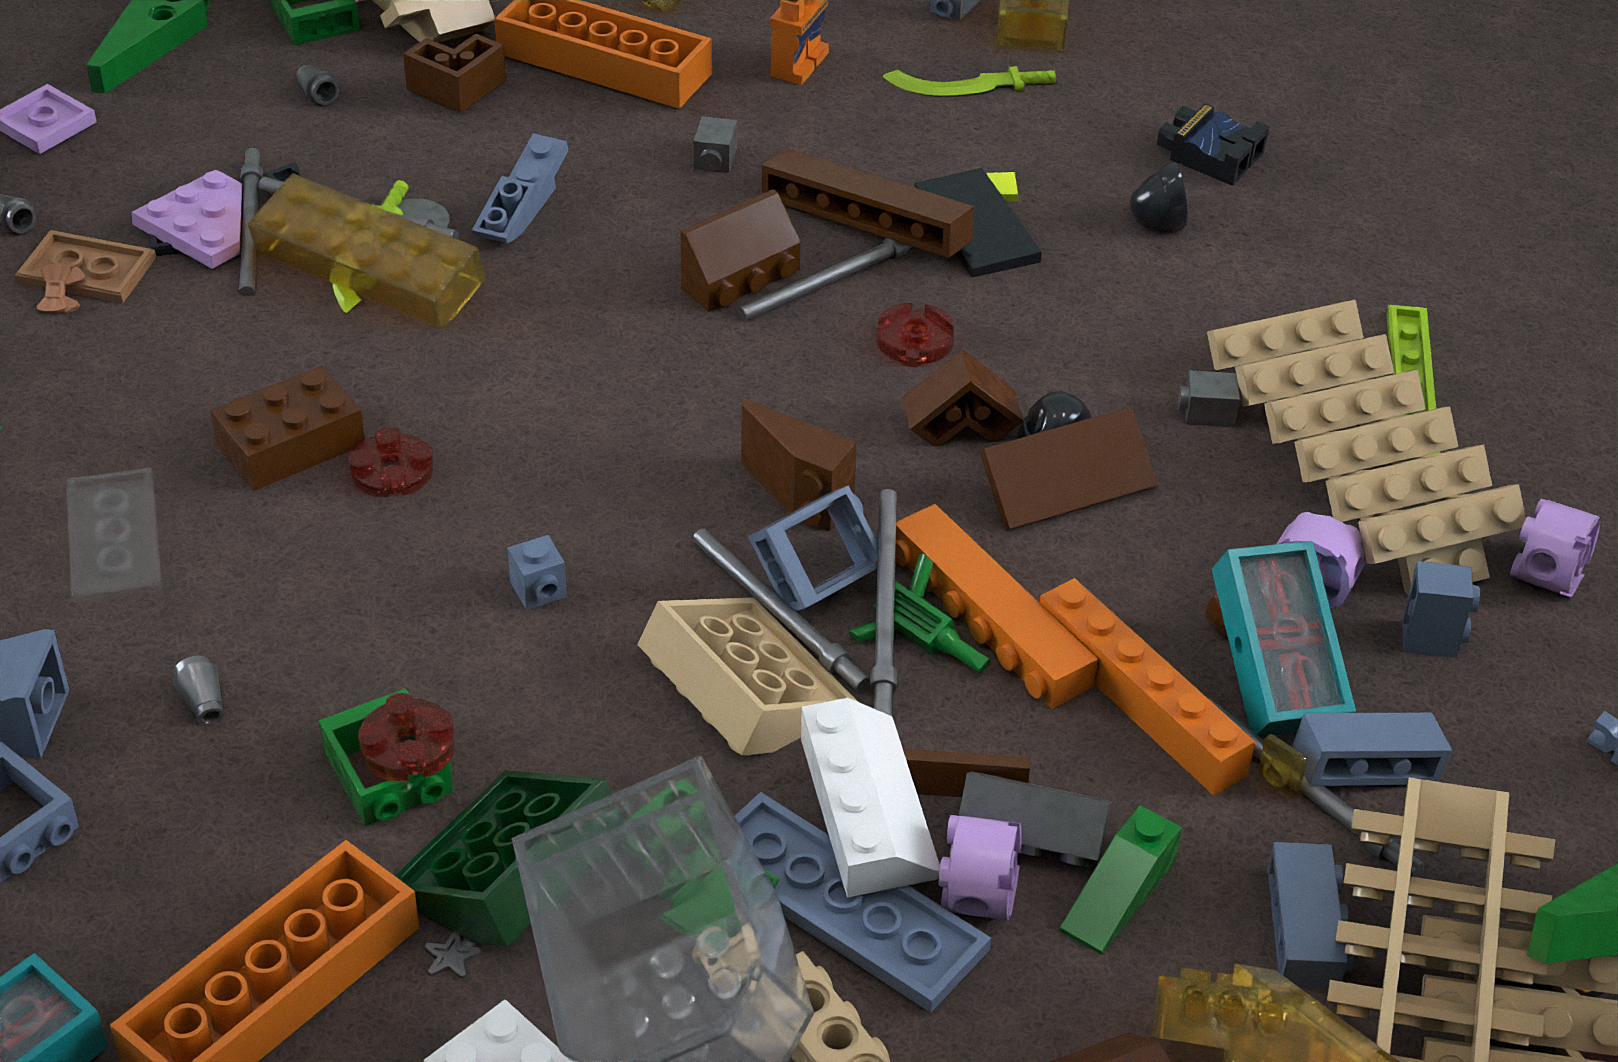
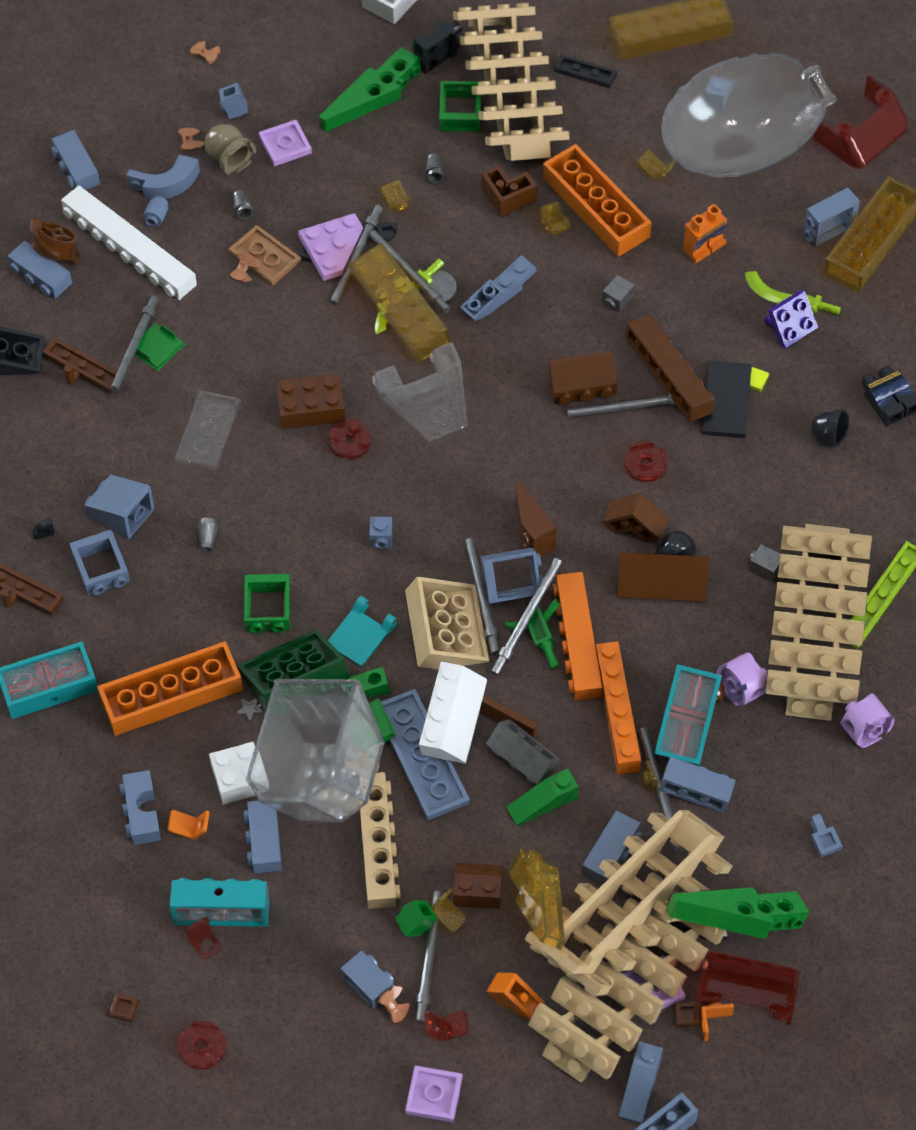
camera: 30 degrees right, 15 degrees up
(272, 130) = (395, 196): none -> clear yellow bracket
(400, 718) = (275, 589): clear red plate -> none
(500, 368) = (430, 402): none -> clear wedge
(547, 91) = (553, 218): none -> clear yellow bracket
(596, 741) = (359, 634): none -> teal flag
(981, 868) = (483, 766): lavender brick -> none
(1000, 95) = (792, 318): none -> plate
(1439, 609) = (780, 729): sand blue brick -> none

